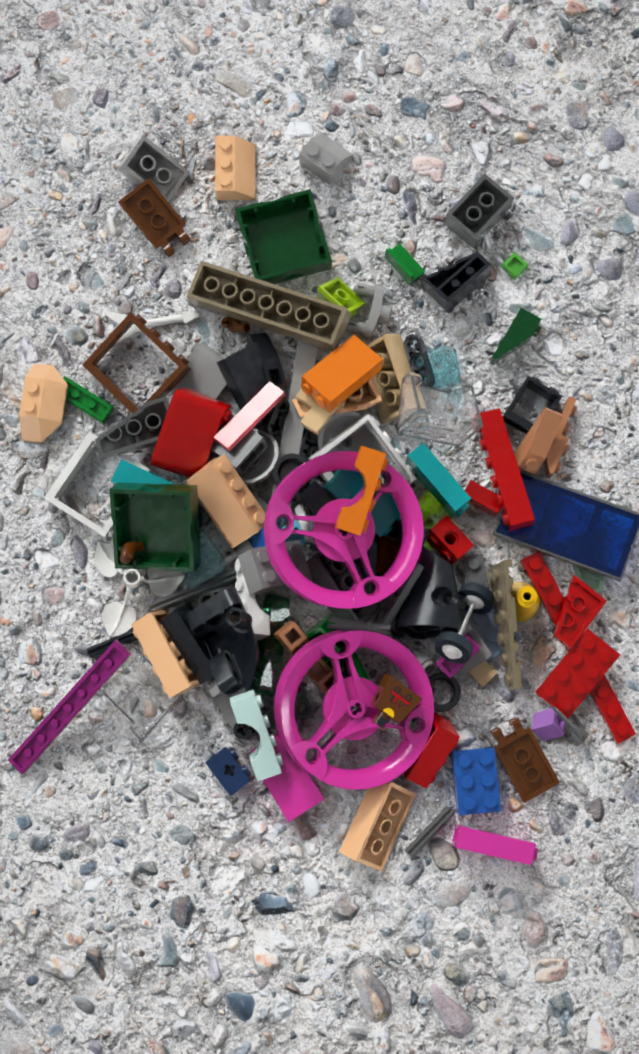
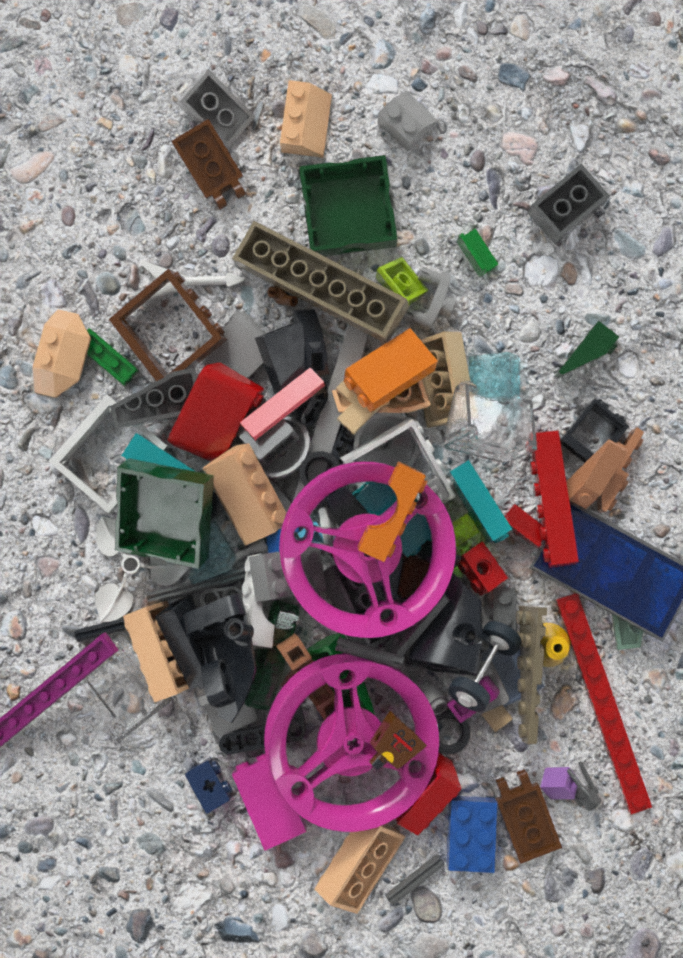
camera: 10 degrees right, 5 degrees up
(129, 549) = (132, 533): reddish brown arm -> none
(247, 711) = (236, 732): light aqua arch -> none
(412, 356) = (485, 371): black beam -> none
(456, 281) = (533, 280): black wedge -> none
(494, 844) = (481, 907): dark pink brick -> none
(514, 266) = (598, 271): bright green tile -> none
(577, 612) = (609, 668): red wing -> none
(578, 673) = (599, 733): red plate -> none

